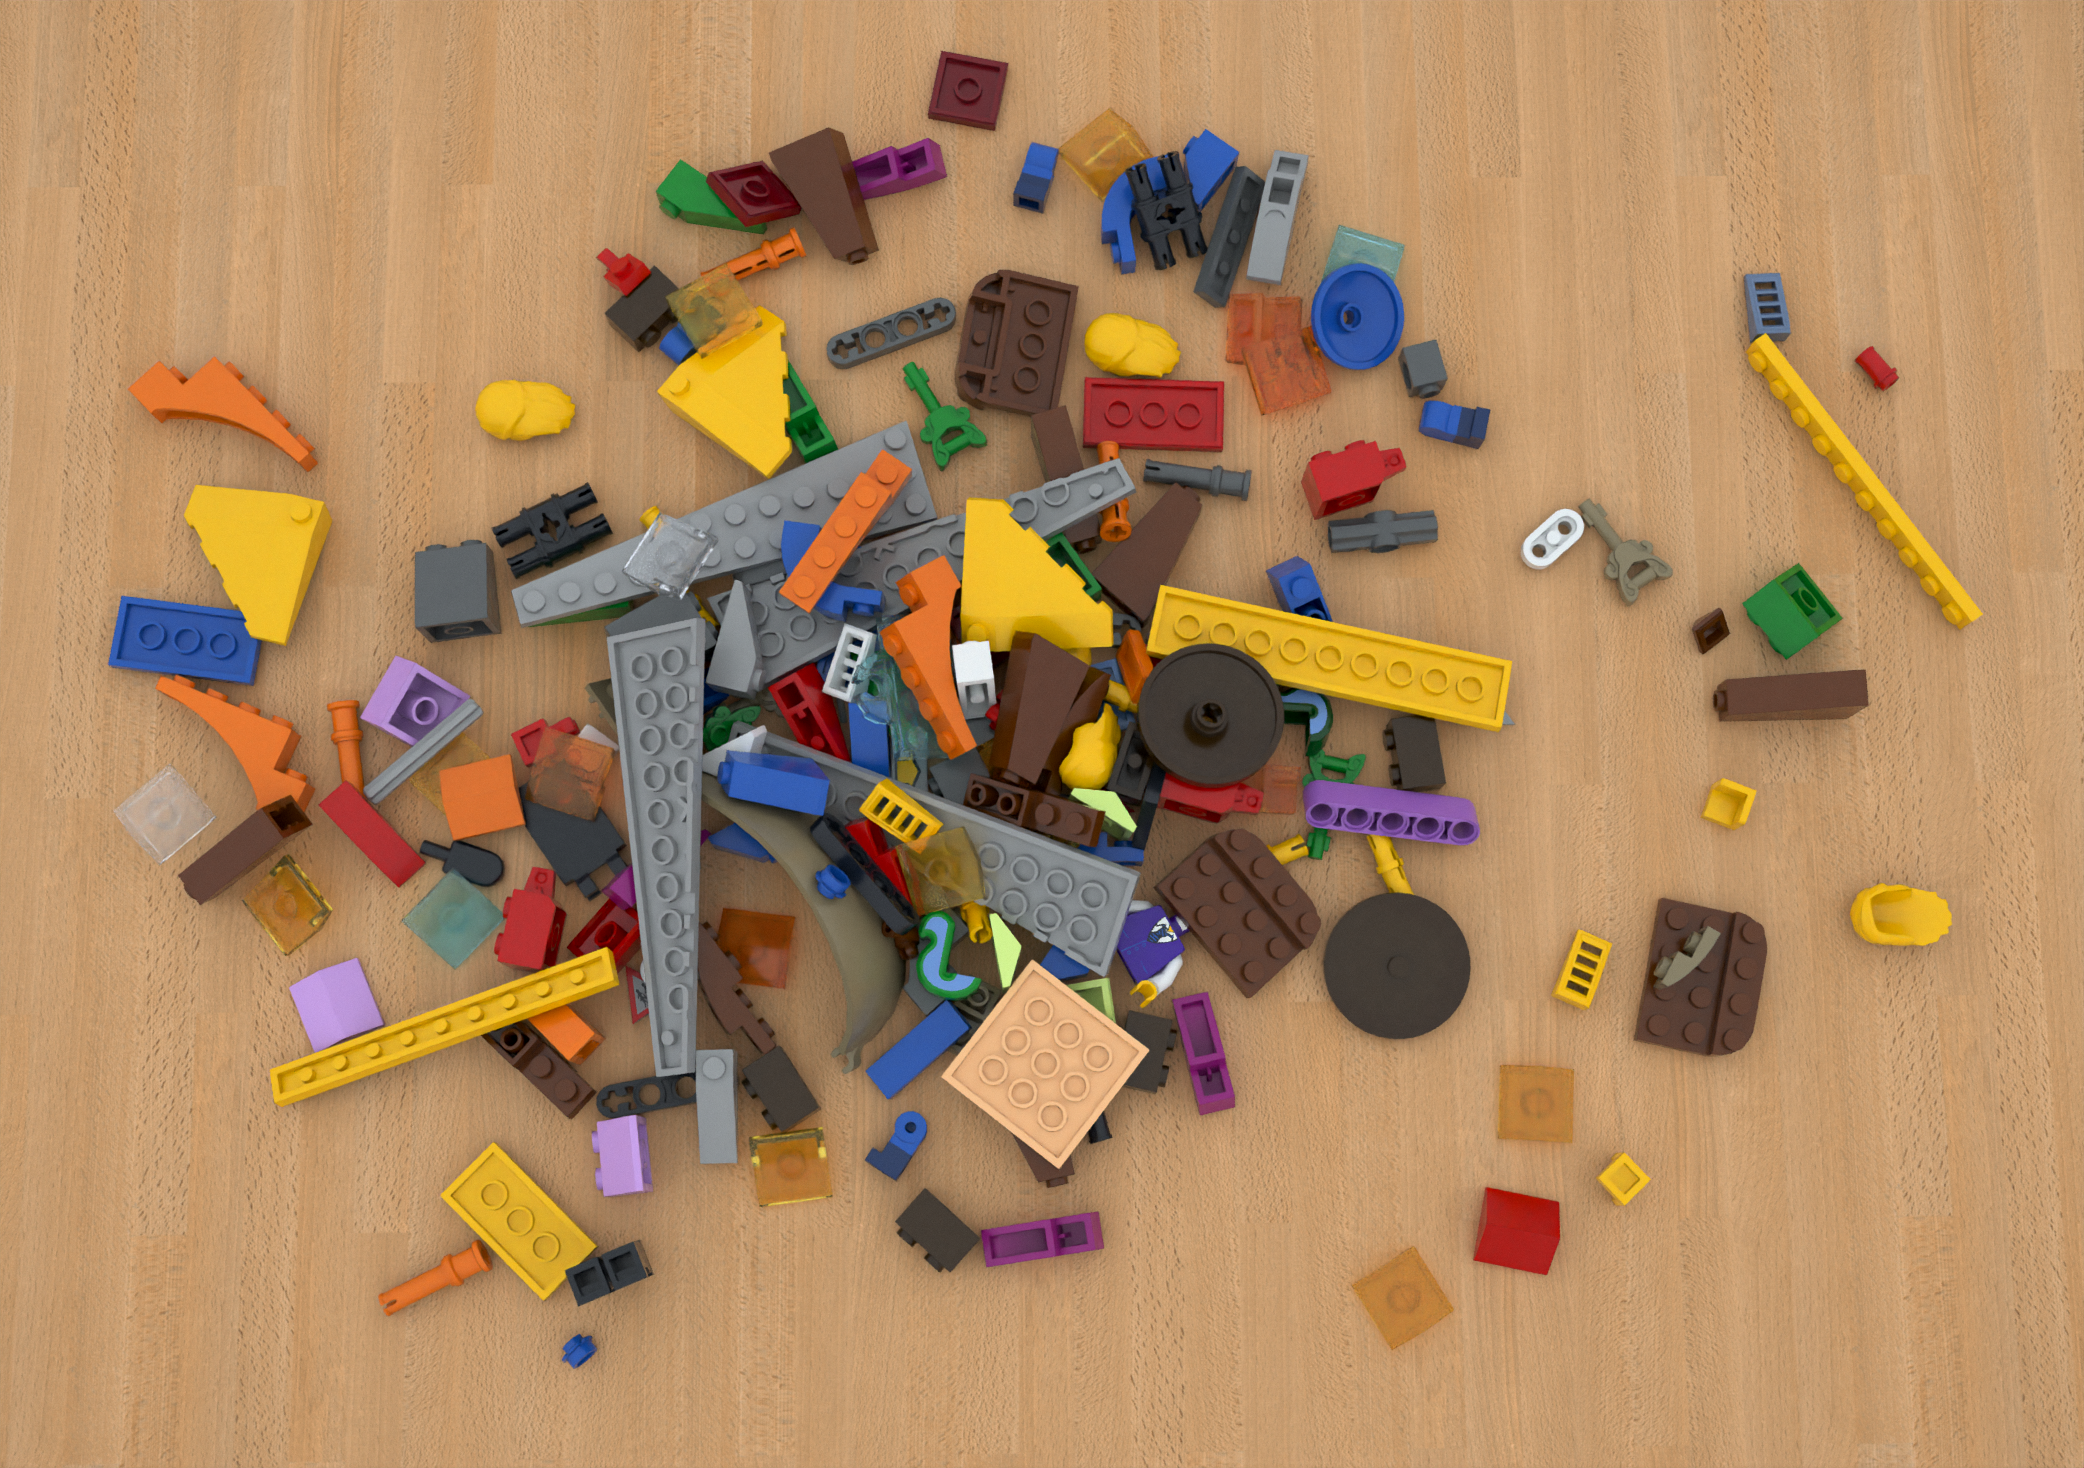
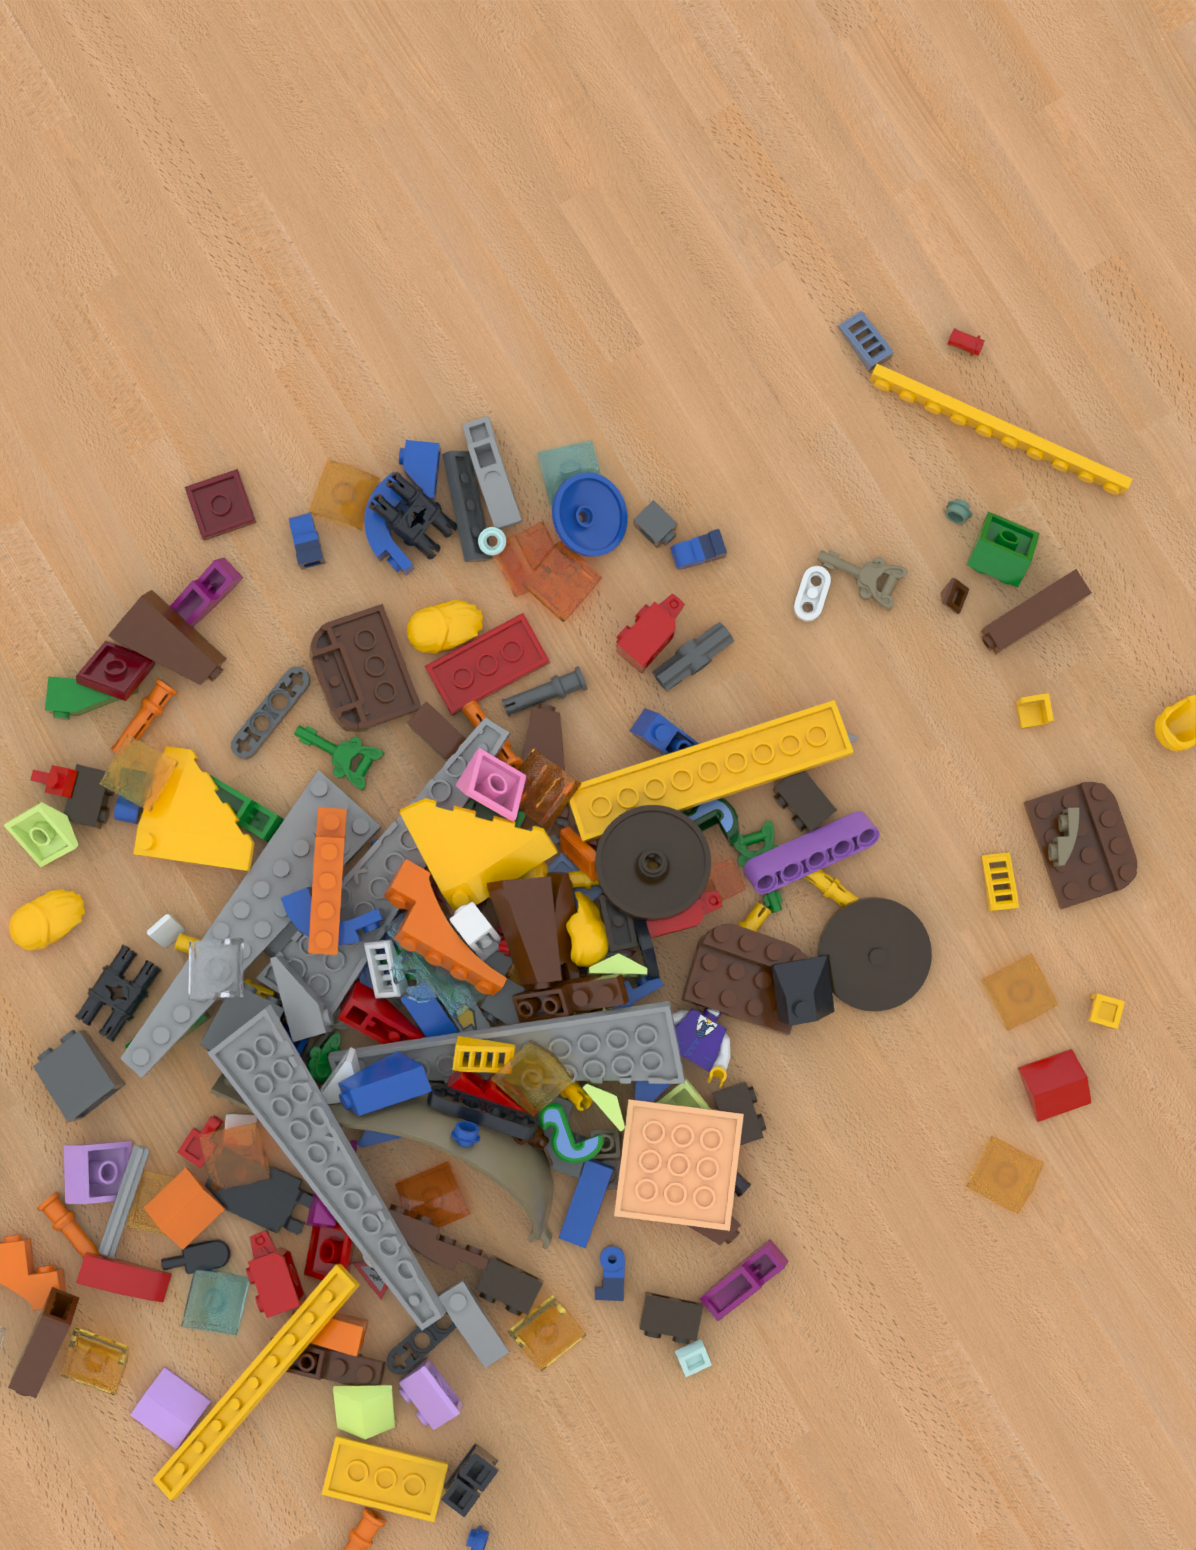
camera: 30 degrees left, 5 degrees up
(542, 1129) = (364, 1409): none -> yellowish green slope
(575, 316) = (43, 833): none -> yellowish green slope
(641, 494) = (166, 930): none -> white slope
(935, 1291) = (693, 1358): none -> light aqua plate
(1086, 531) = (493, 784): none -> bright pink slope
(1134, 571) = (545, 789): none -> clear orange slope
(1204, 1053) = (779, 1090): magenta slope -> none
(1231, 275) = (492, 550): none -> light aqua plate
(1295, 954) = (803, 990): none -> black slope
(1765, 543) = (958, 511): none -> sand green plate

